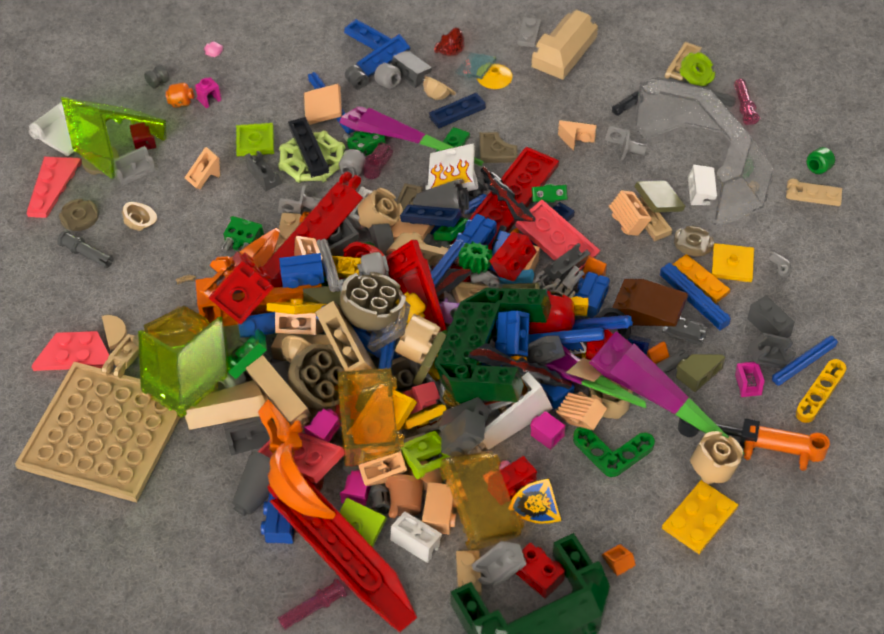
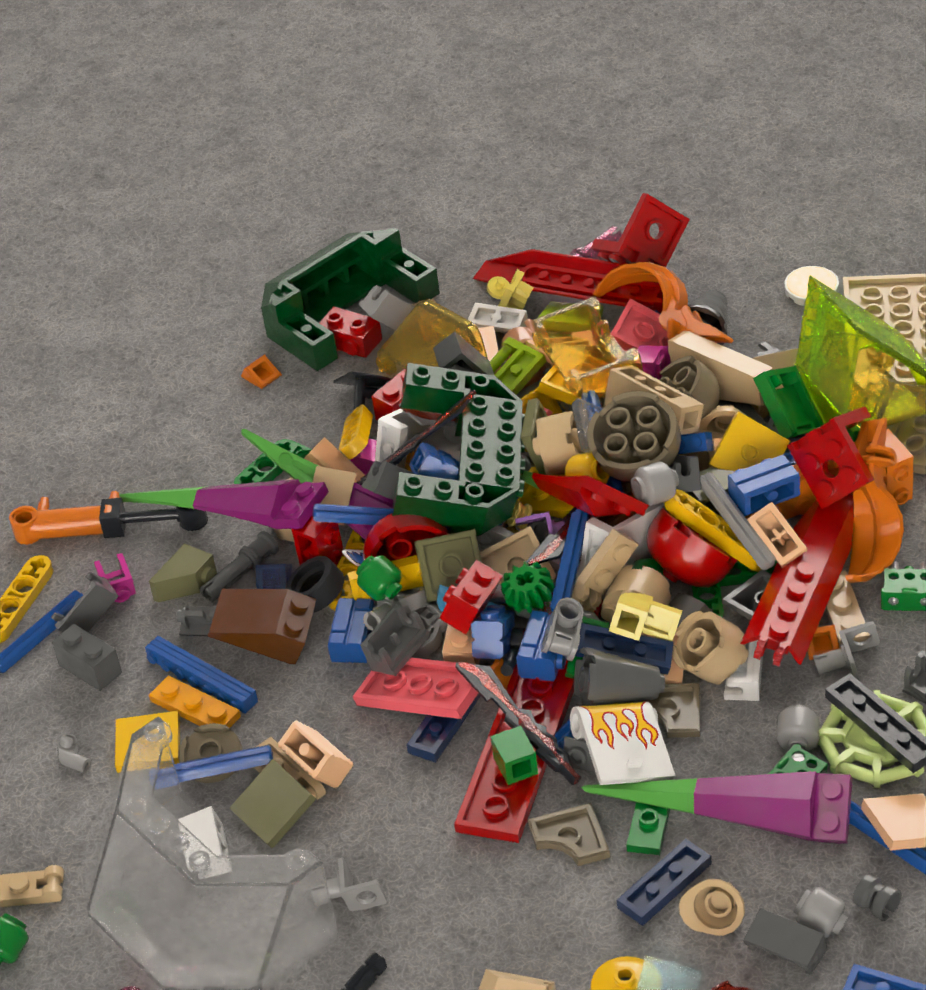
camera: 170 degrees right, 10 degrees down
(159, 509) = (797, 281): none -> tile
(284, 539) = (636, 242): none -> red bracket
(376, 161) = (760, 745): clear pink piece -> none
(383, 54) = (847, 947): blue plate -> none
(396, 553) = (511, 294): none -> light yellow hips
(418, 220) = (639, 615): none -> light yellow brick
(465, 219) = (564, 628): none -> light grey piece
(515, 175) = (514, 755): none -> green brick
(549, 193) = (443, 736): green piece -> none
(559, 445) = (356, 432): none -> yellow beam
(568, 282) = (379, 578): none -> green head
(575, 131) = (444, 886): light nougat slope -> none
(594, 266) = (352, 670): orange slope -> none
(606, 323) = (314, 530): blue axle -> none
(658, 353) = (245, 579): orange slope -> none
(694, 223) = (224, 763): none -> axle
(700, 517) = (169, 432): yellow plate -> none
(716, 457) = (152, 466): tan brick -> none

